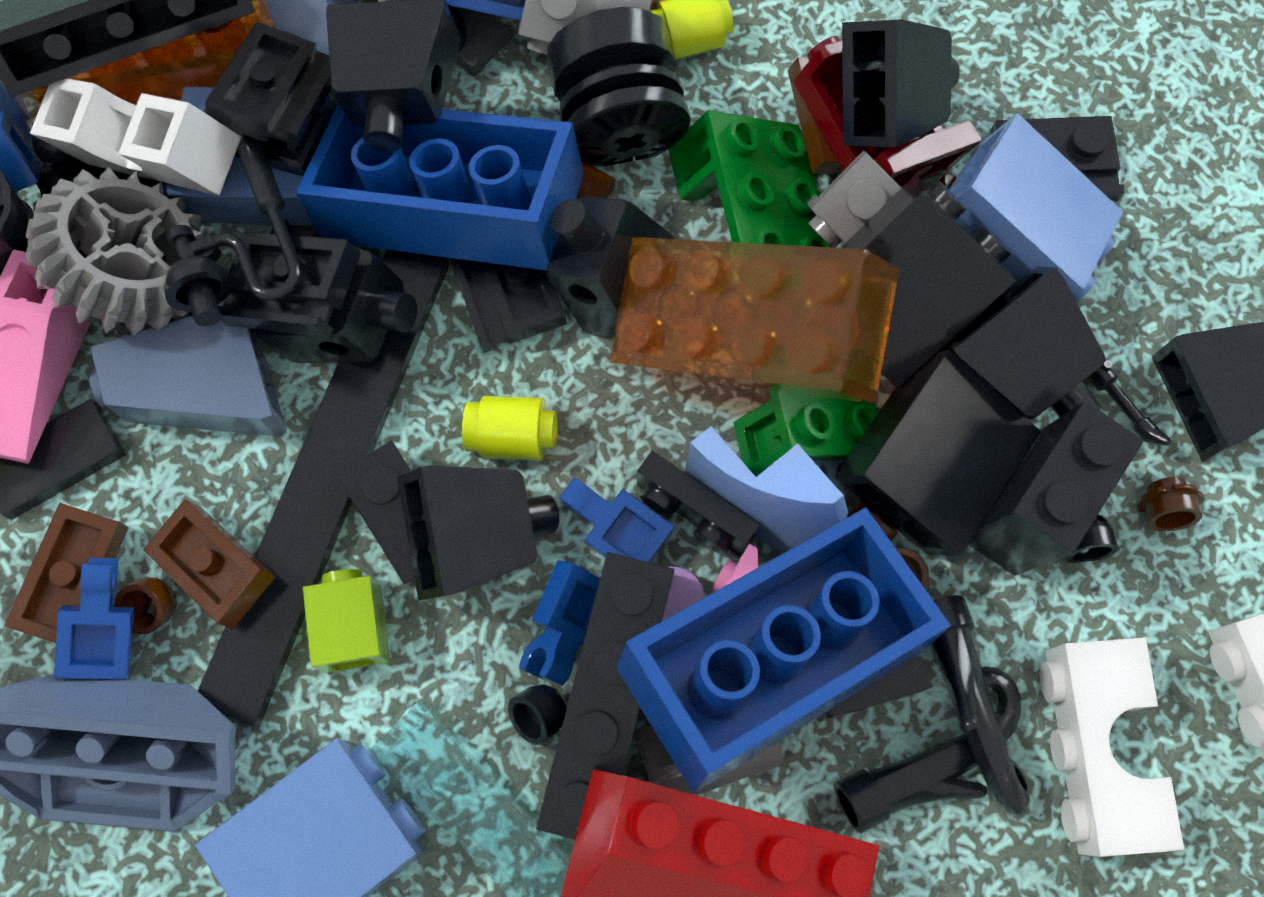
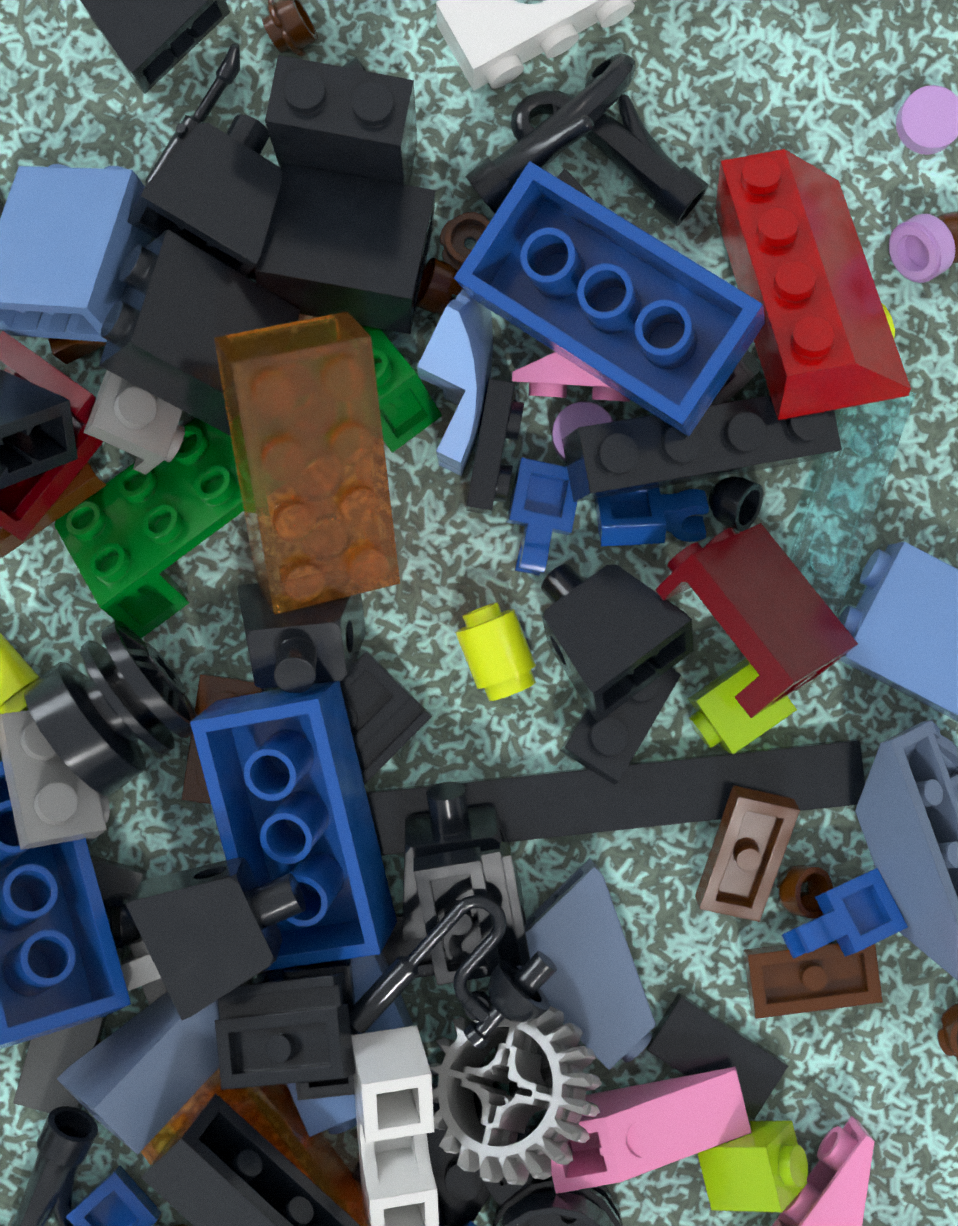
camera: 115 degrees left, 15 degrees up
(419, 670) = (763, 609): none -> dark red panel

